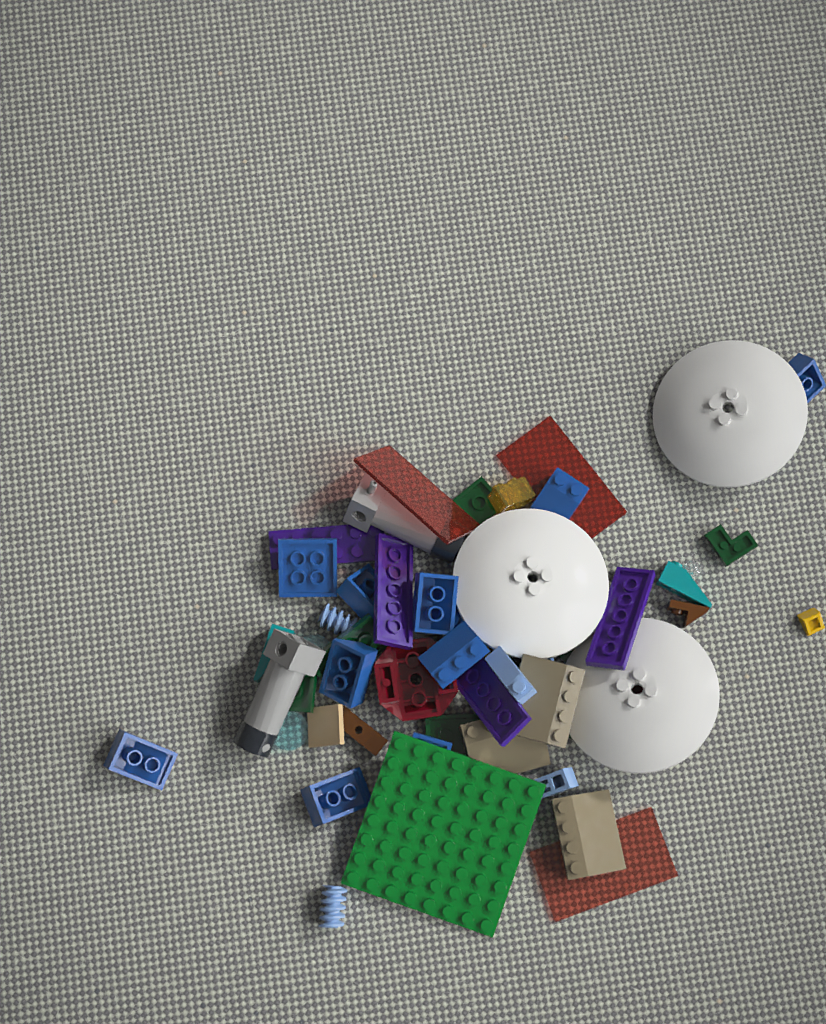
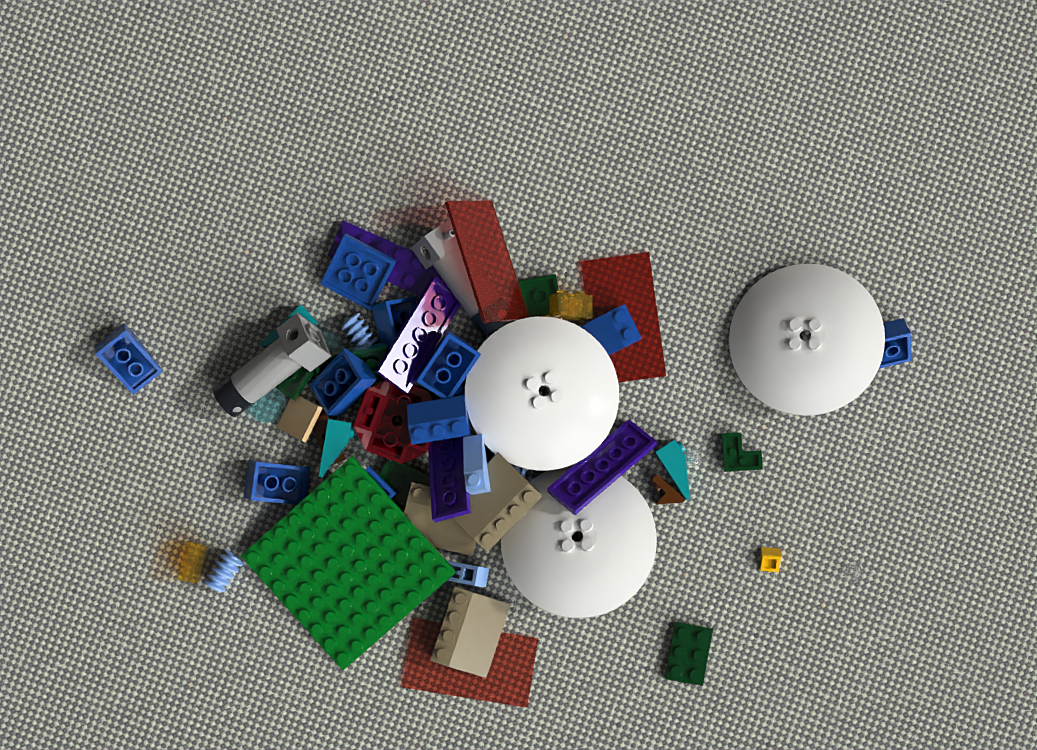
camera: 30 degrees right, 10 degrees up
(299, 913) = (193, 561): none -> clear yellow brick
(370, 724) = (336, 439): none -> teal slope
(791, 744) = (688, 653): none -> dark green plate

